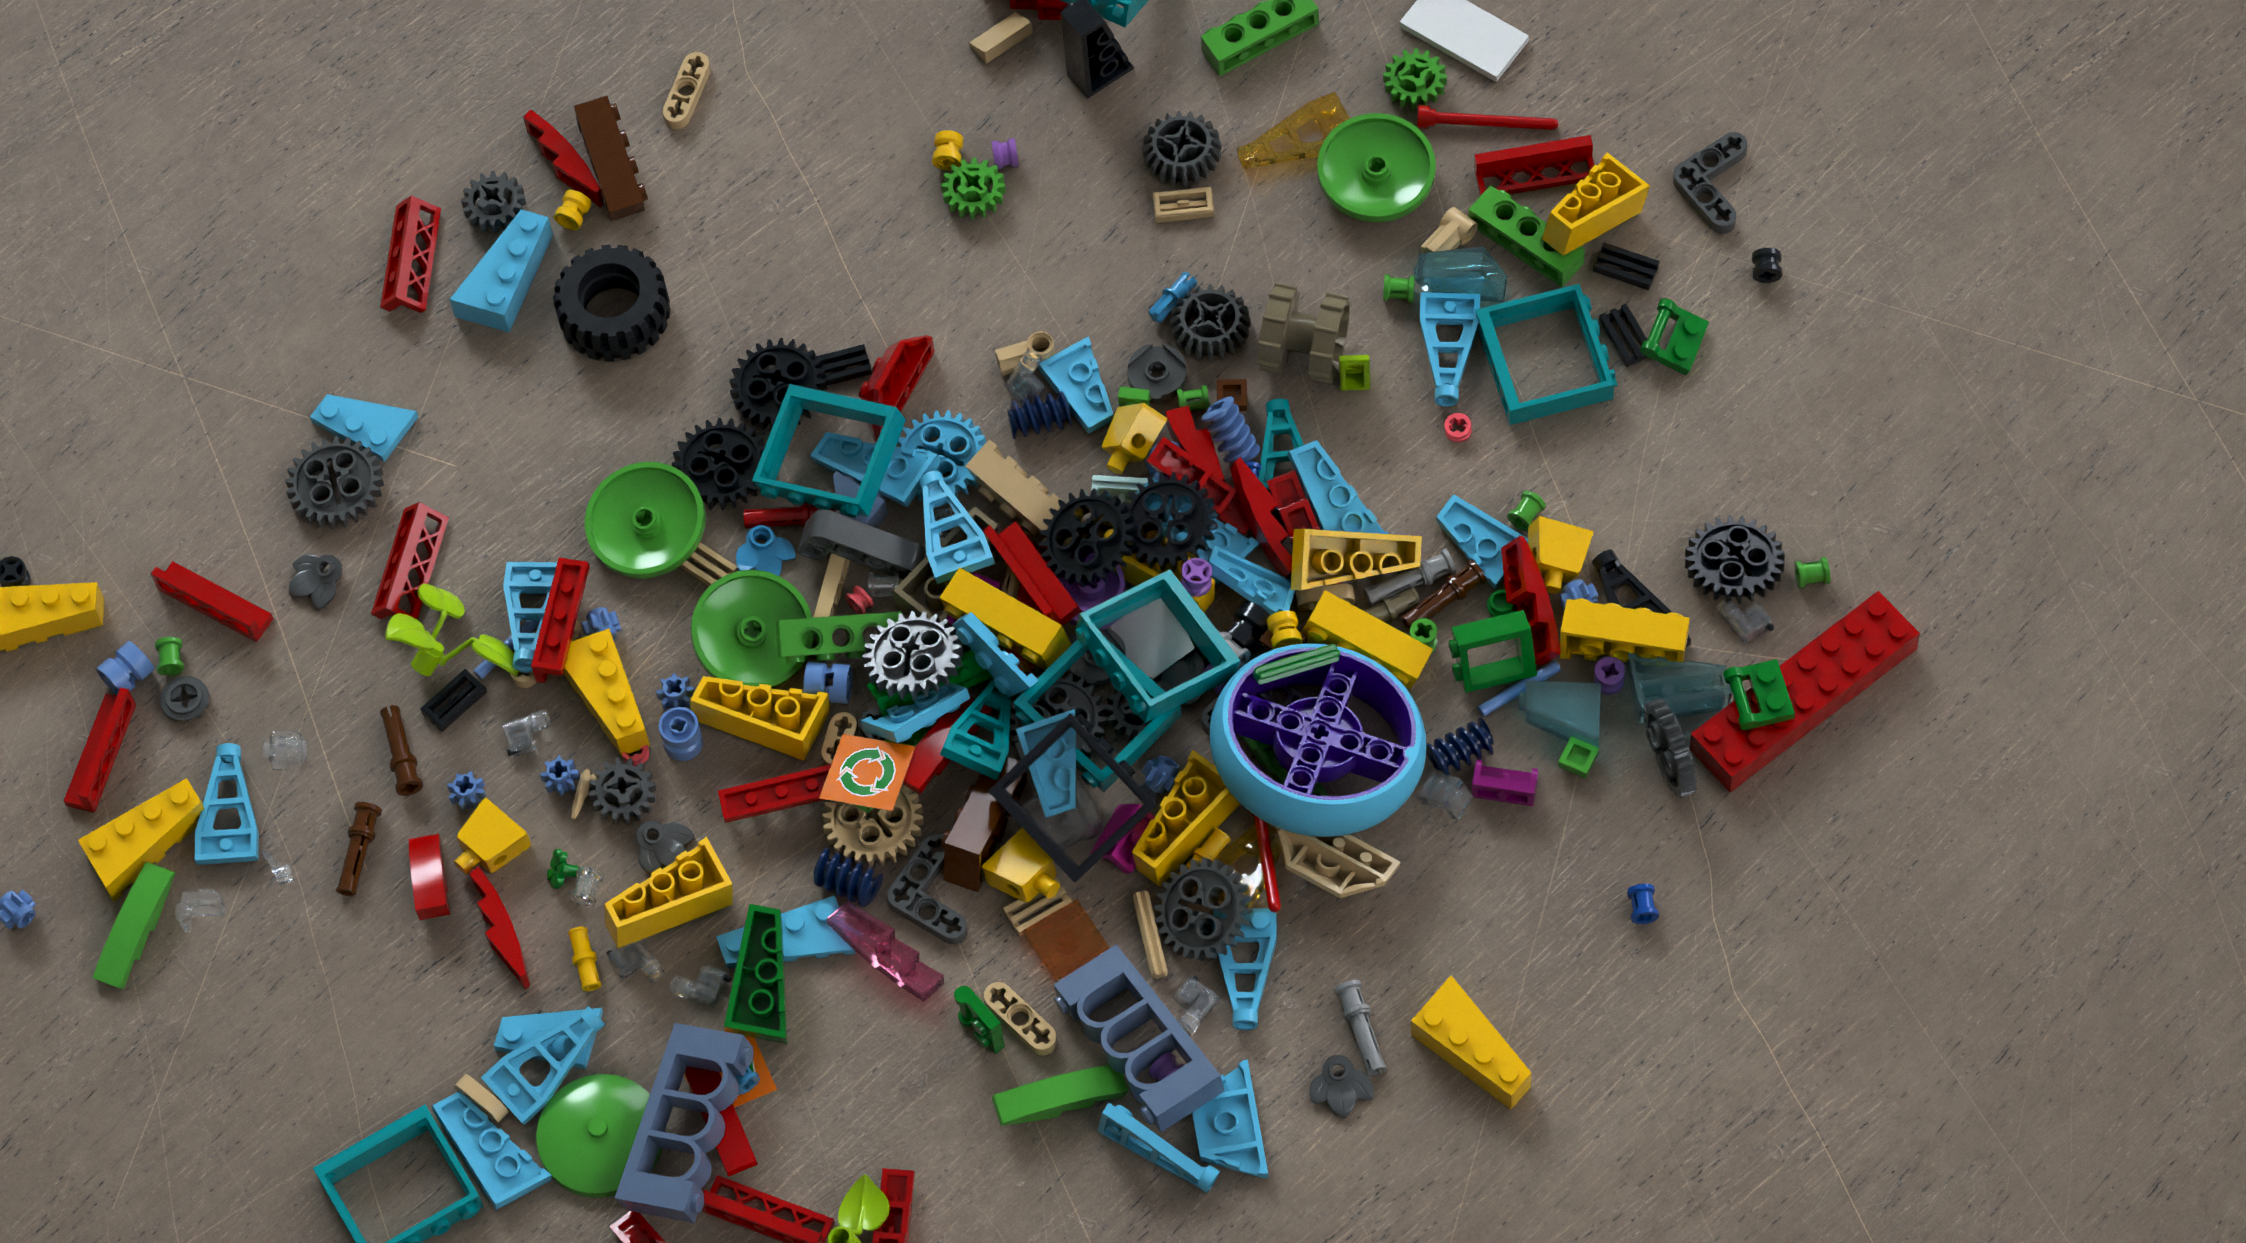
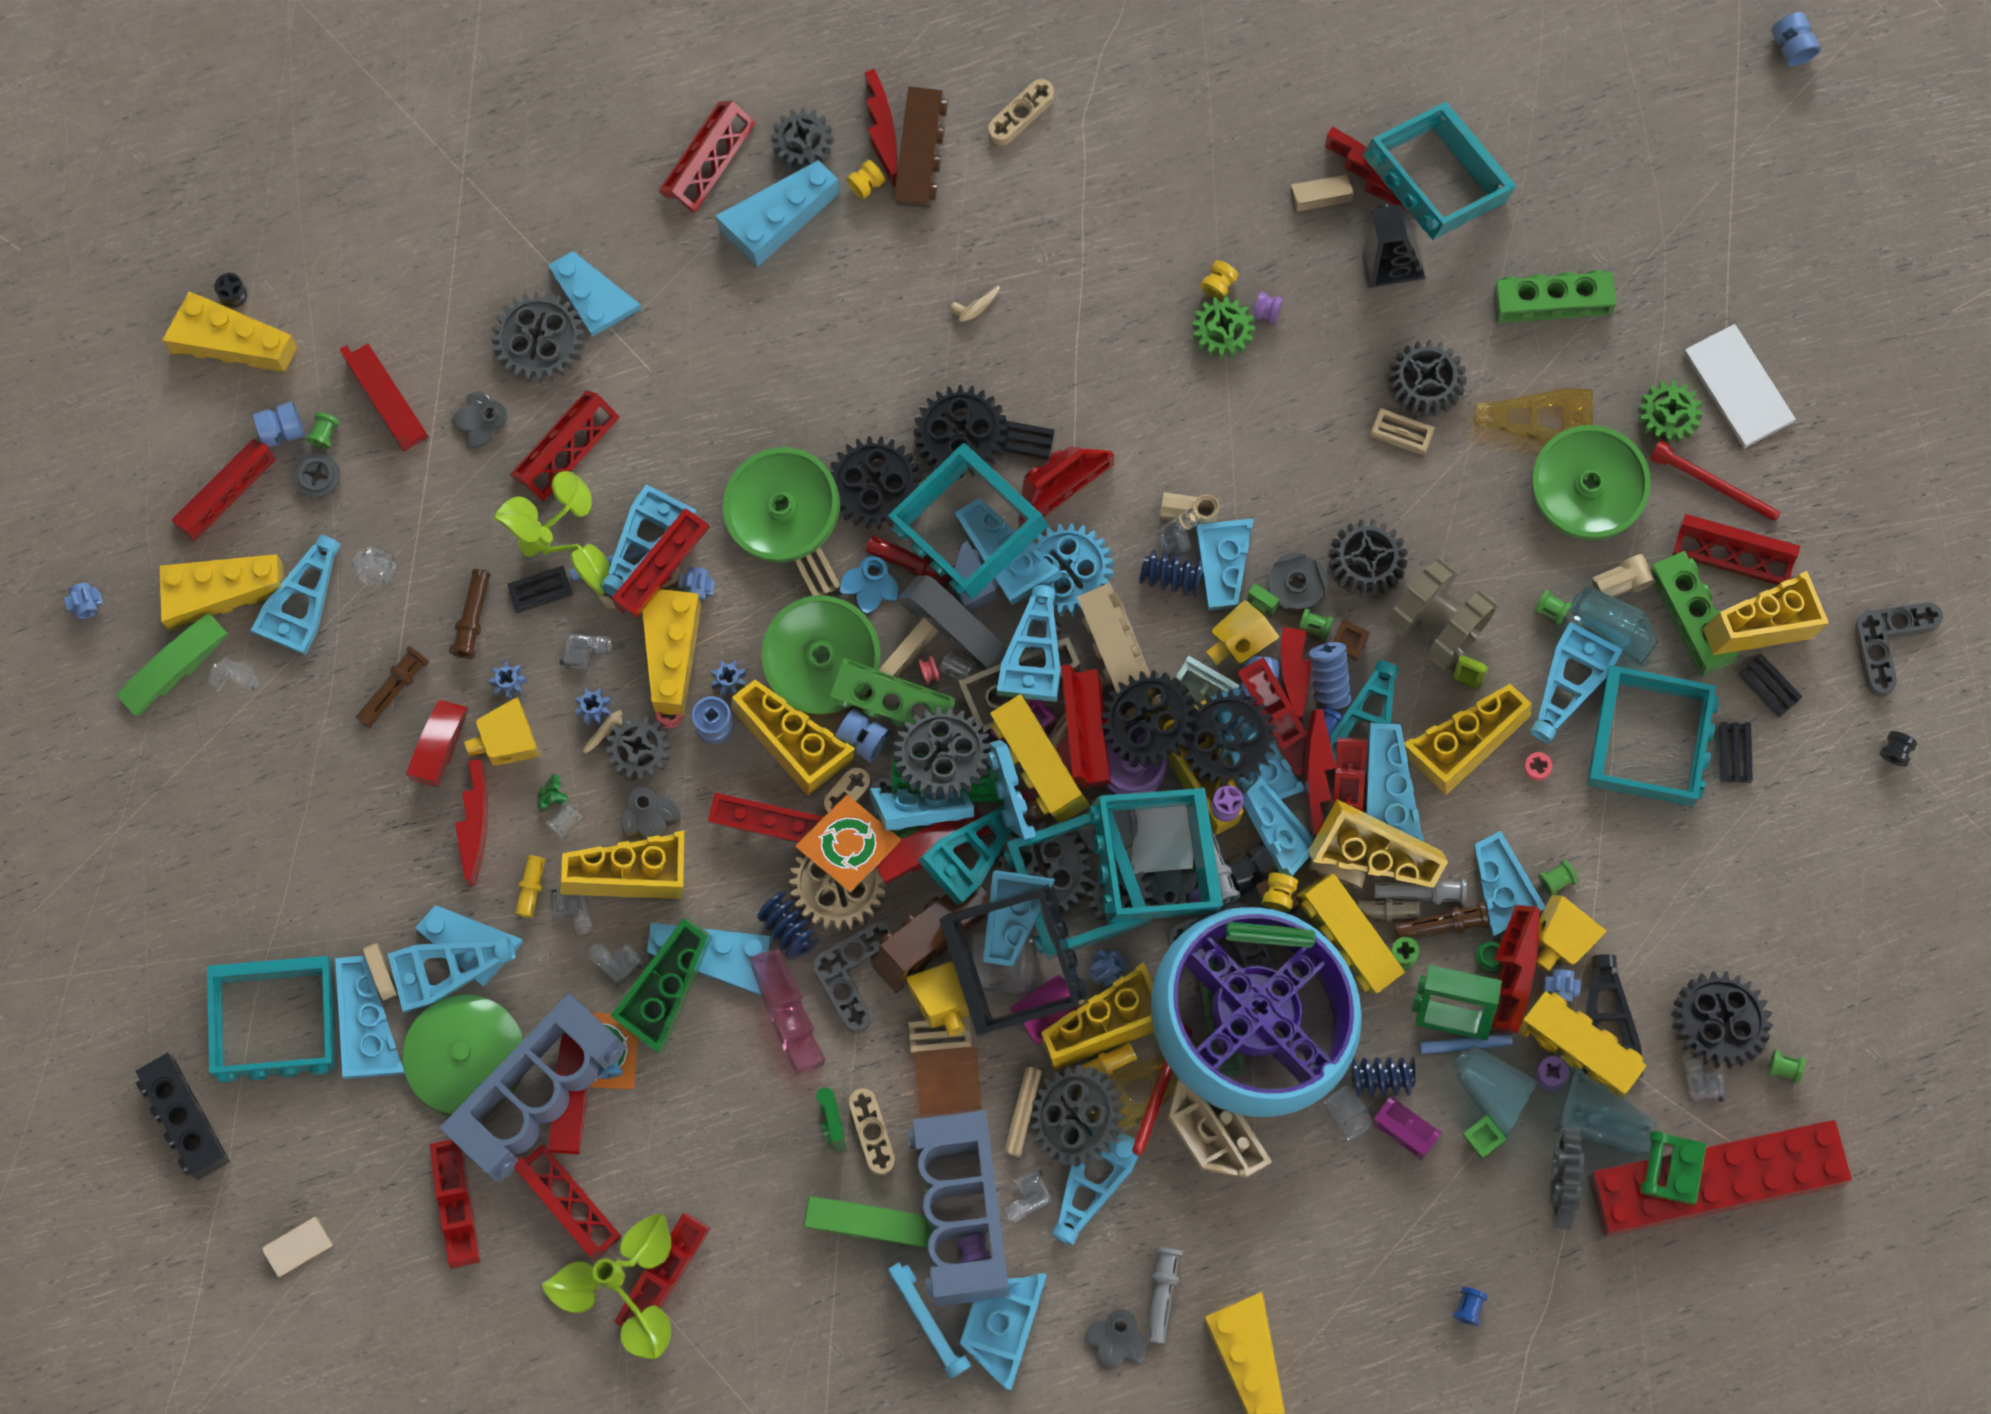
camera: 25 degrees right, 10 degrees up
(282, 873) = (319, 678): clear hand -> none
(607, 270) = (846, 252): black tyre -> none
(734, 274) = (975, 308): none -> tan bar
(1165, 304) = (1346, 516): dark azure axle -> none
(1381, 433) = (1462, 743): none -> yellow wedge
(1683, 340) = (1784, 783): green plate -> none

